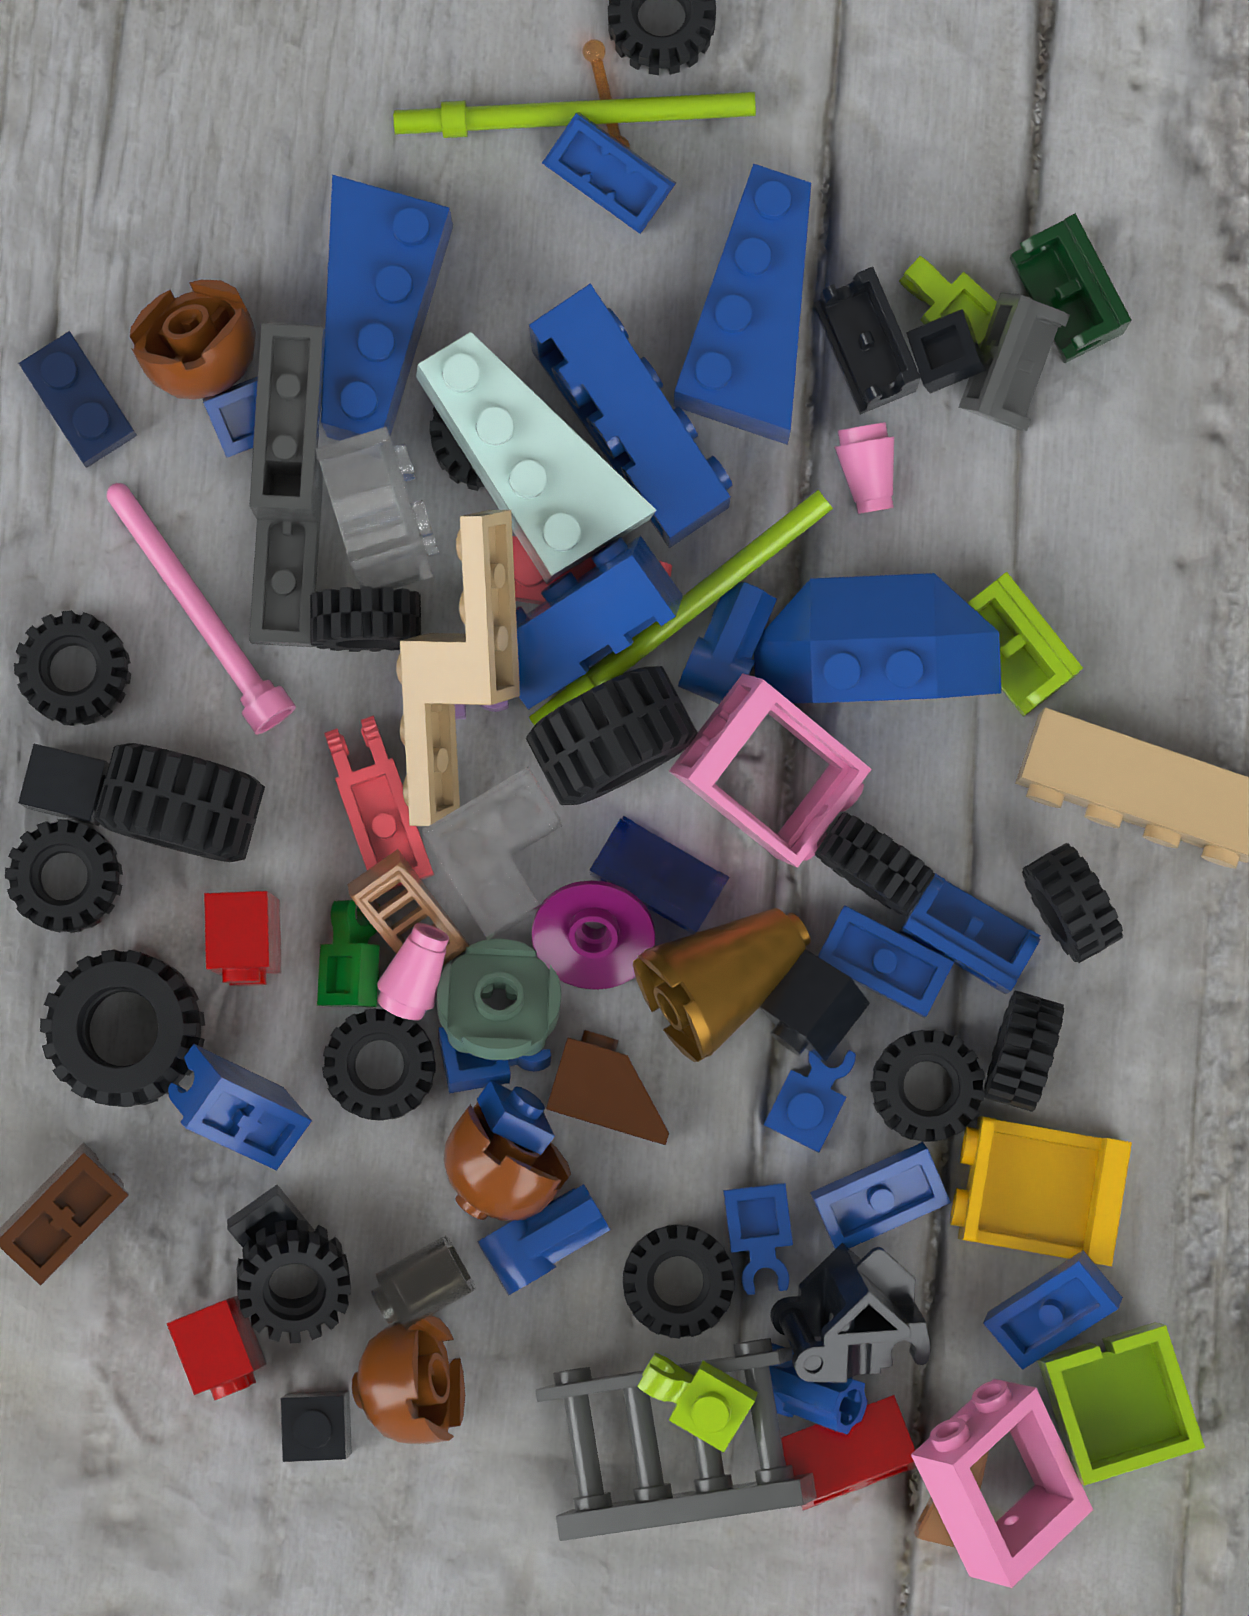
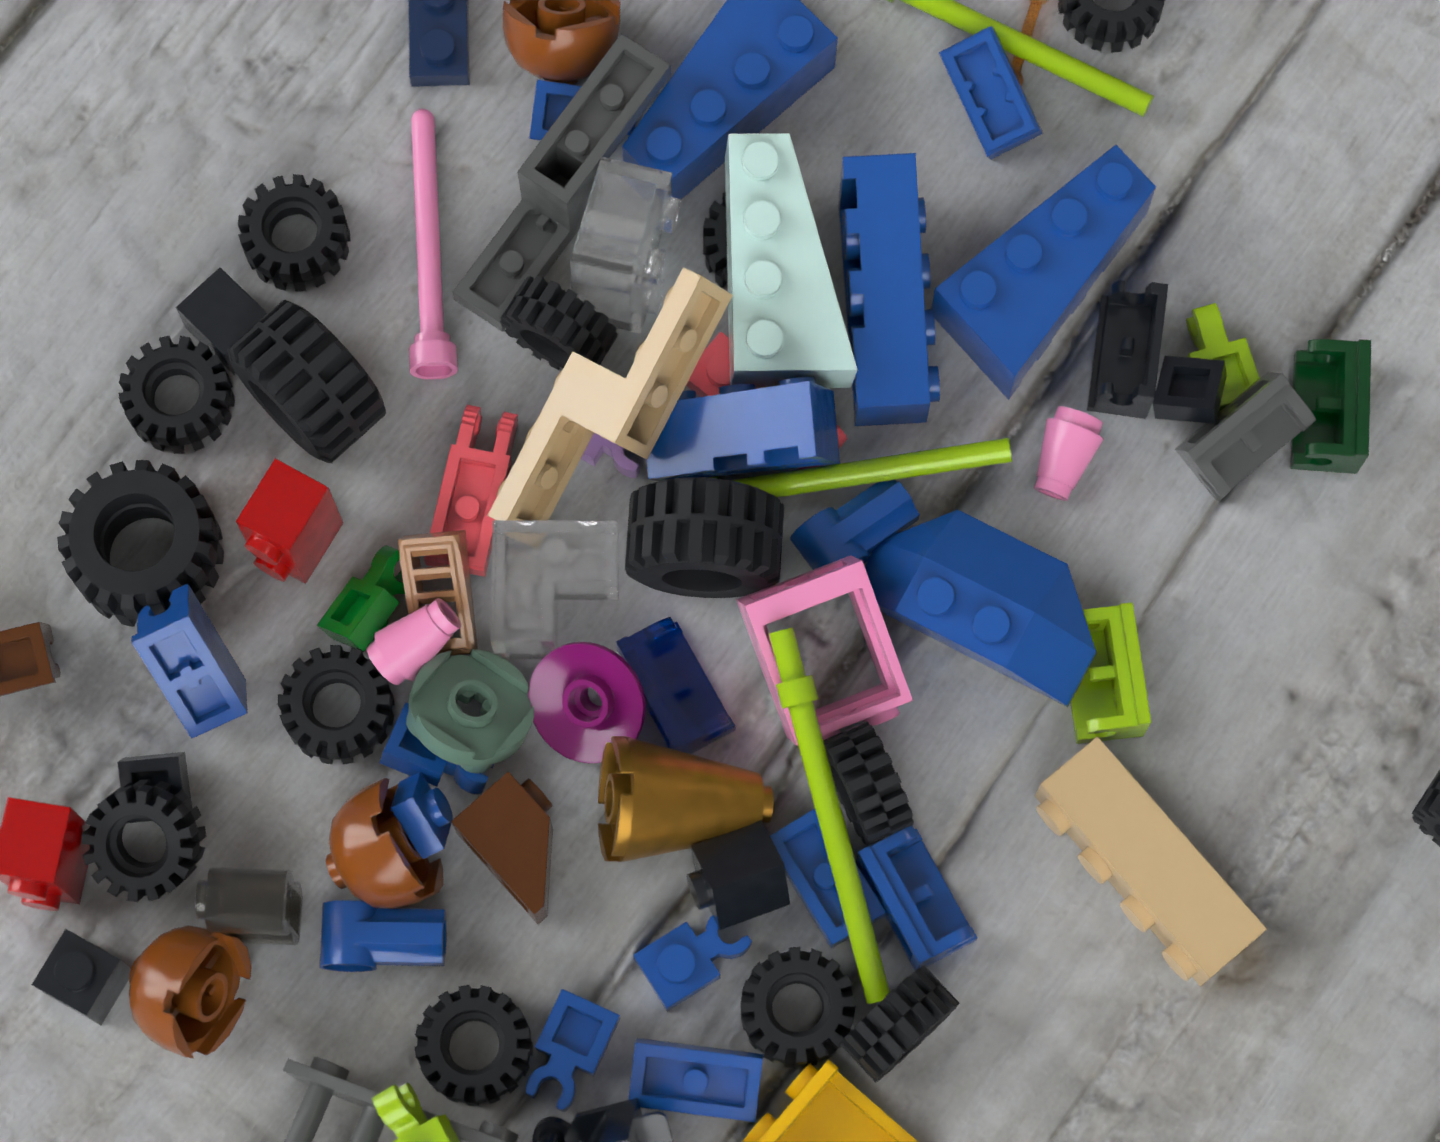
camera: 30 degrees right, 10 degrees down
(778, 828) = (797, 695): none -> lime bar
(1072, 903) = (1021, 920): black tyre -> none

